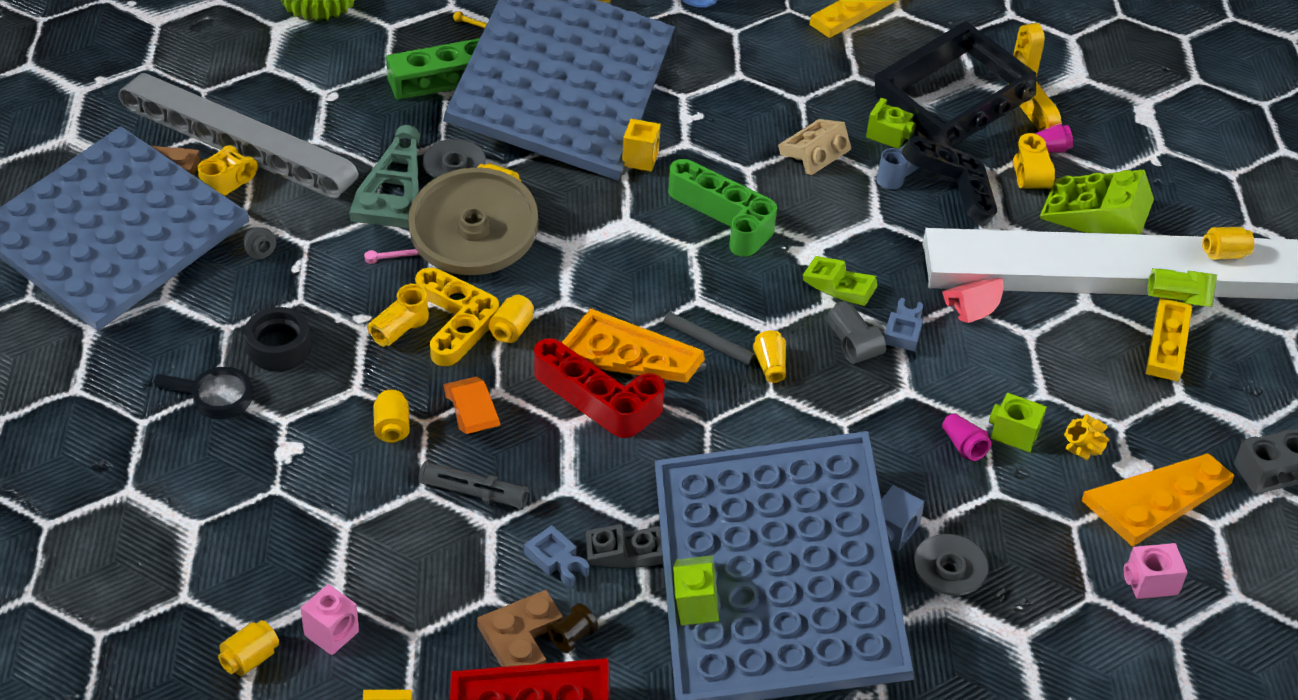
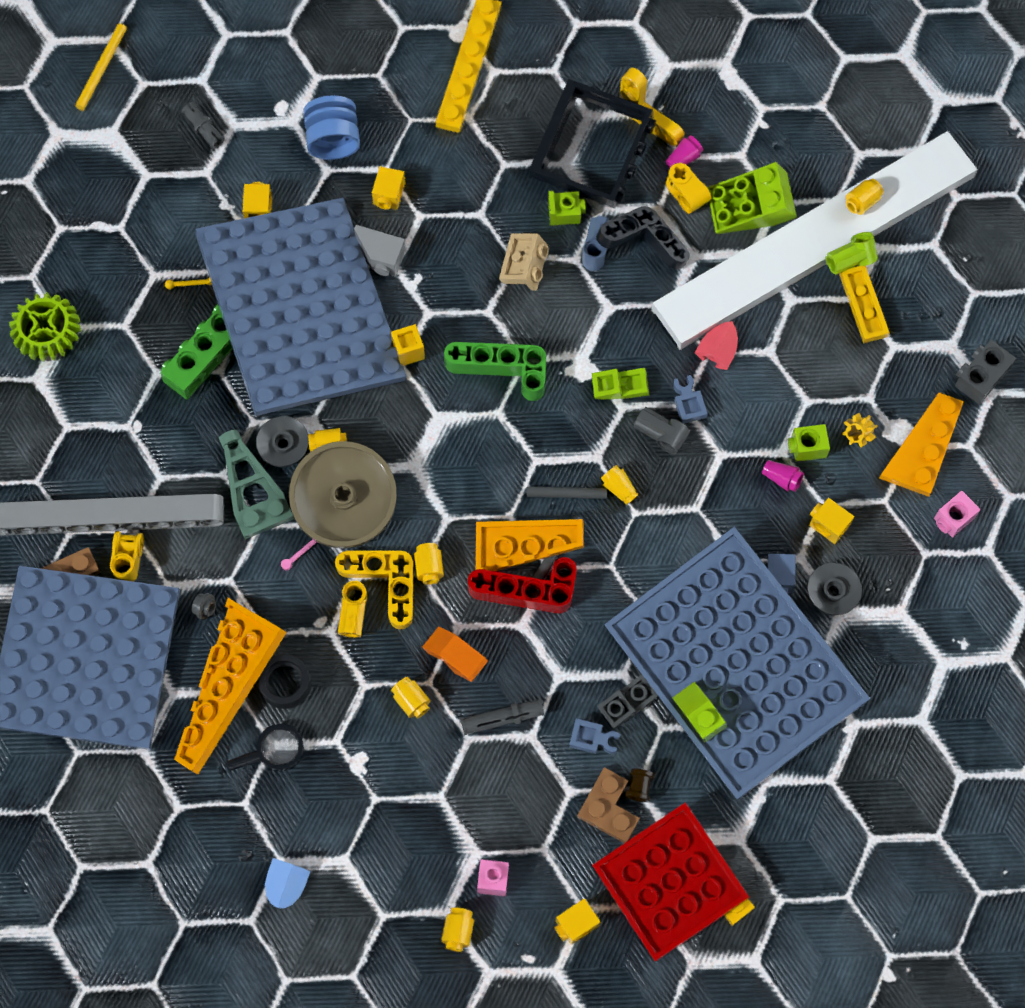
camera: 30 degrees left, 25 degrees up
(112, 505) = (285, 883): none -> light blue brick
(219, 306) = (229, 675): none -> light orange wing
(679, 75) = (381, 250): none -> light grey slope
(724, 37) = (388, 188): none -> yellow brick
(993, 501) = (830, 520): none -> yellow brick

